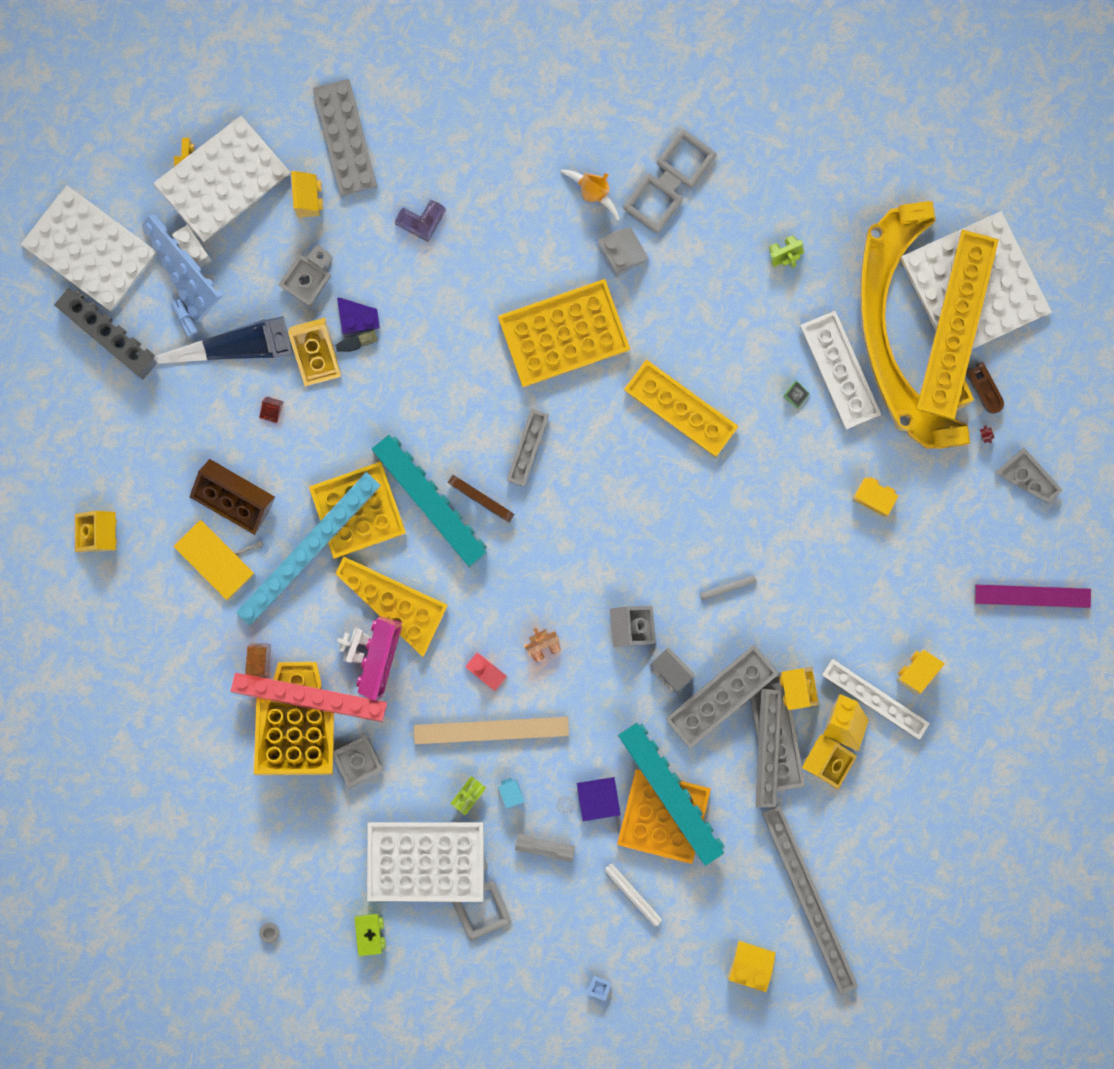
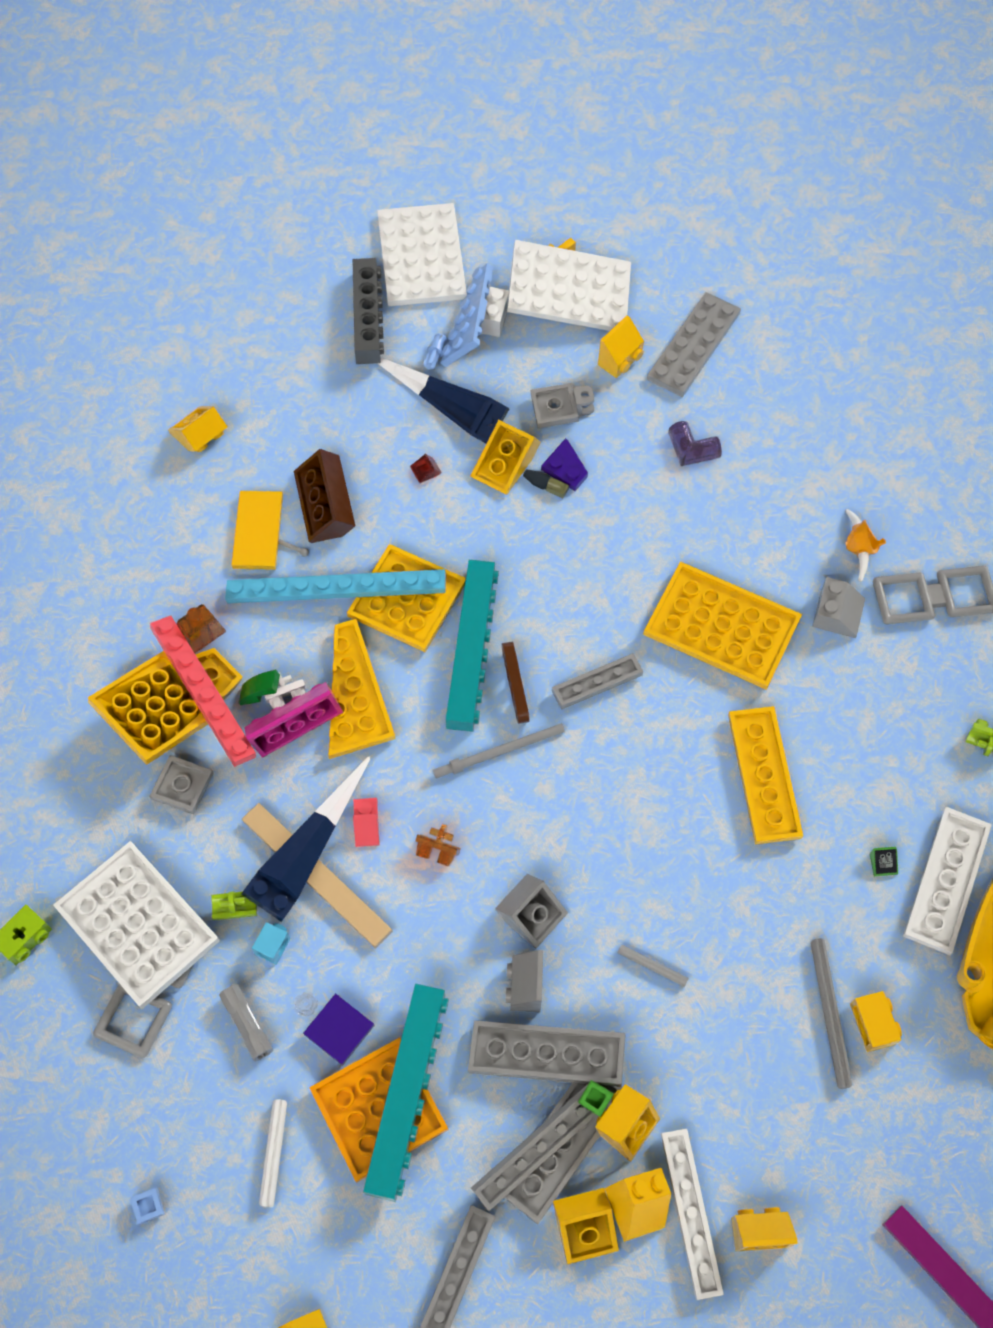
camera: 45 degrees right, 20 degrees down
(336, 659) = (258, 686): none -> green slope
(477, 748) = (287, 871): none -> dark blue plate
(501, 584) = (456, 765): none -> light grey bar
(774, 695) = (595, 1098): none -> bright green slope
(847, 515) = (831, 1014): none -> light grey axle

